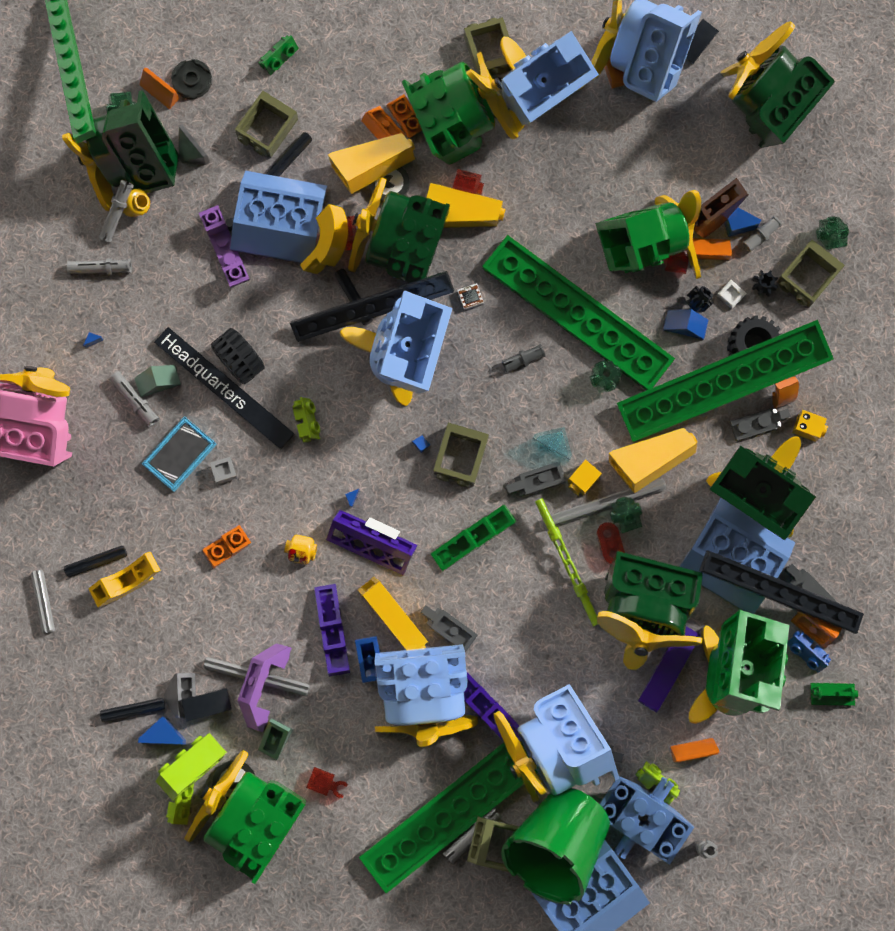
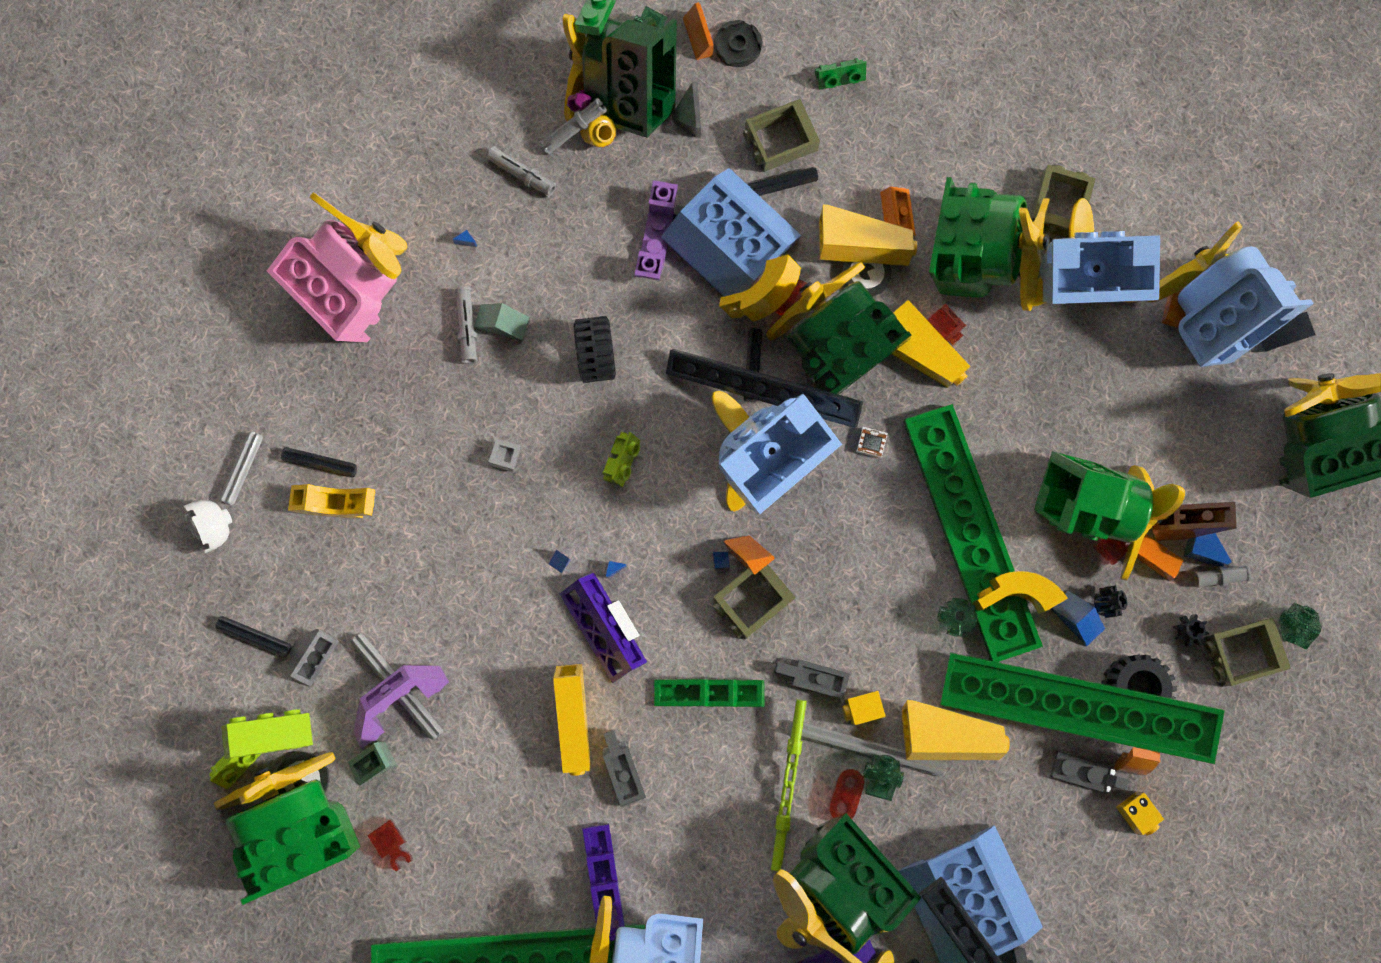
camera: 30 degrees right, 0 degrees up
(47, 654) = (208, 523): none -> white cylinder
(108, 191) = (578, 101): none -> magenta piece
(162, 733) = (264, 681): blue slope -> none
(179, 454) = (473, 409): tile -> none
(206, 704) = (327, 681): black slope -> none
(224, 388) = (562, 373): black tile -> none
(226, 546) = (456, 534): orange slope -> none
(301, 549) = (527, 587): yellow head -> none
(310, 517) = (559, 561): none -> blue piece
(332, 630) = (502, 691): dark purple slope -> none
(366, 652) = (518, 748): blue slope -> none
(405, 116) = (927, 215): orange slope -> none
(424, 692) = (548, 822): light blue brick -> none
(437, 425) = (749, 553): none -> orange slope
(523, 358) = (884, 541): dark grey pin -> none
(555, 442) = (859, 651): clear light blue slope -> none
(643, 322) = (1033, 587): none -> yellow arch
(731, 294) = (1147, 618): white tile -> none
(765, 487) = (1048, 853): dark green brick -> none

